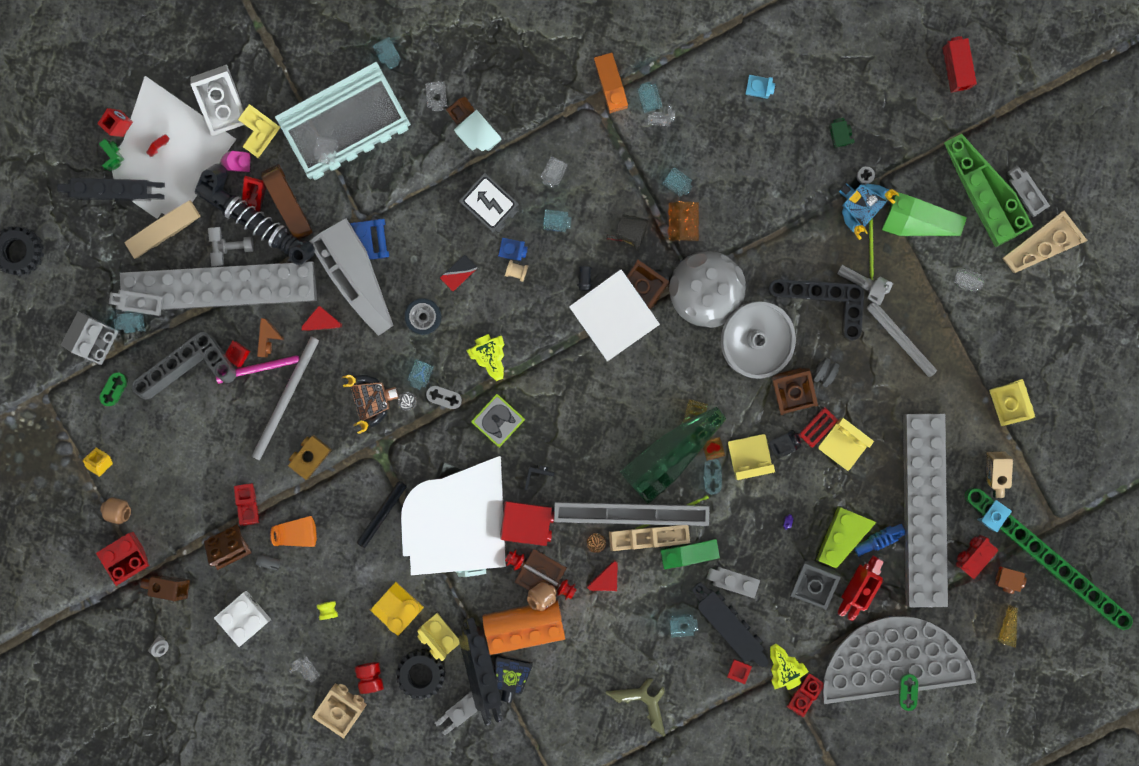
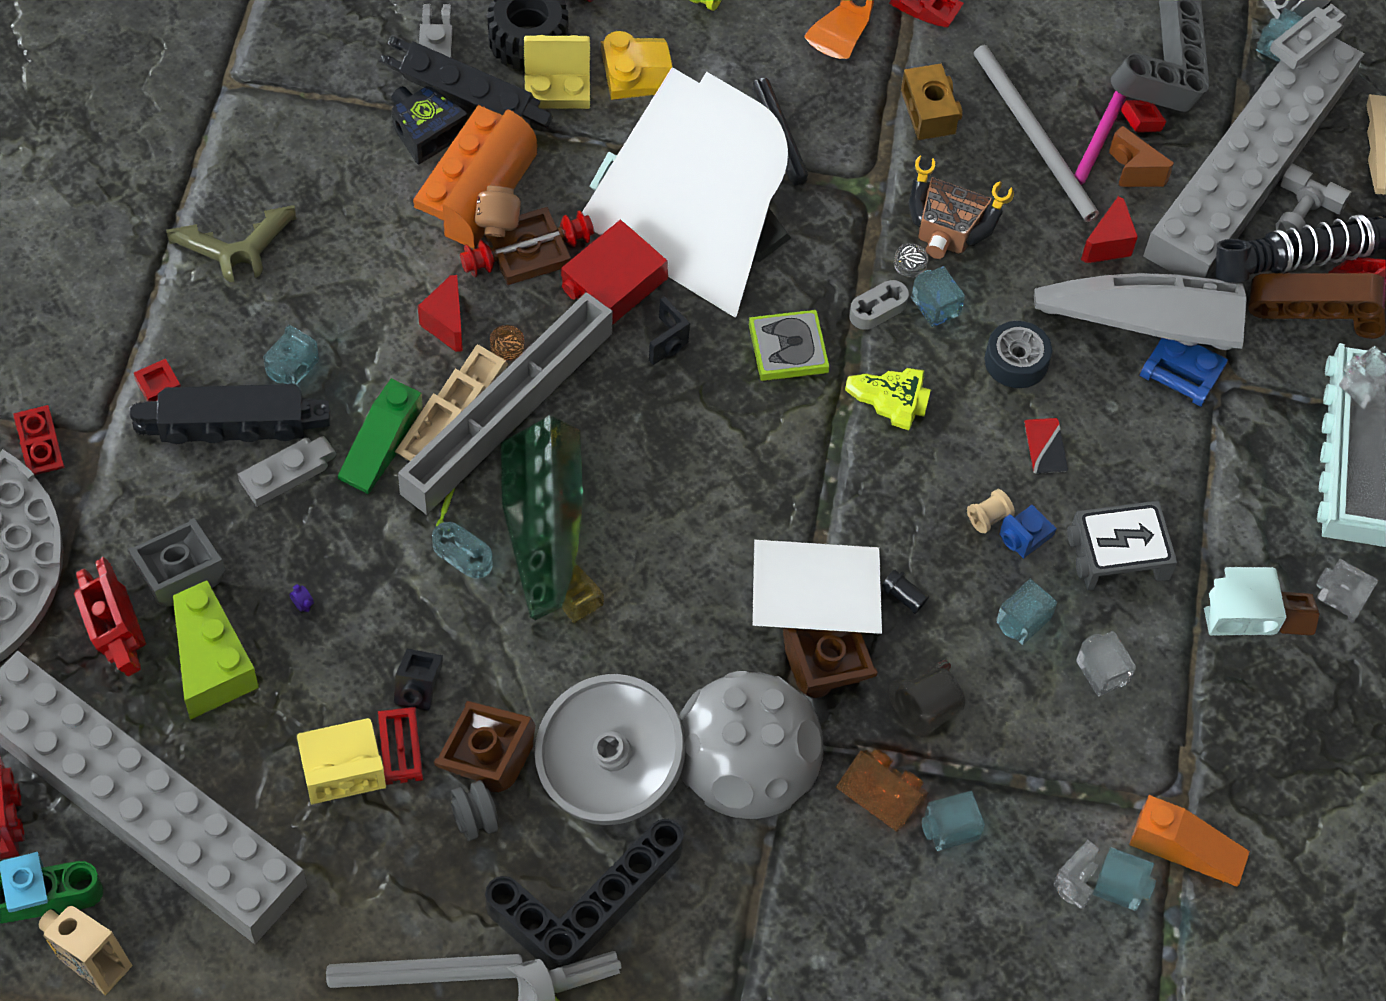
camera: 125 degrees right, 30 degrees down
(713, 449) = (500, 576): clear orange tile -> none
(750, 457) = (439, 614): light yellow bracket -> none
(785, 669) = (100, 440): neon yellow rock -> none
(880, 539) = (154, 698): blue hinge -> none

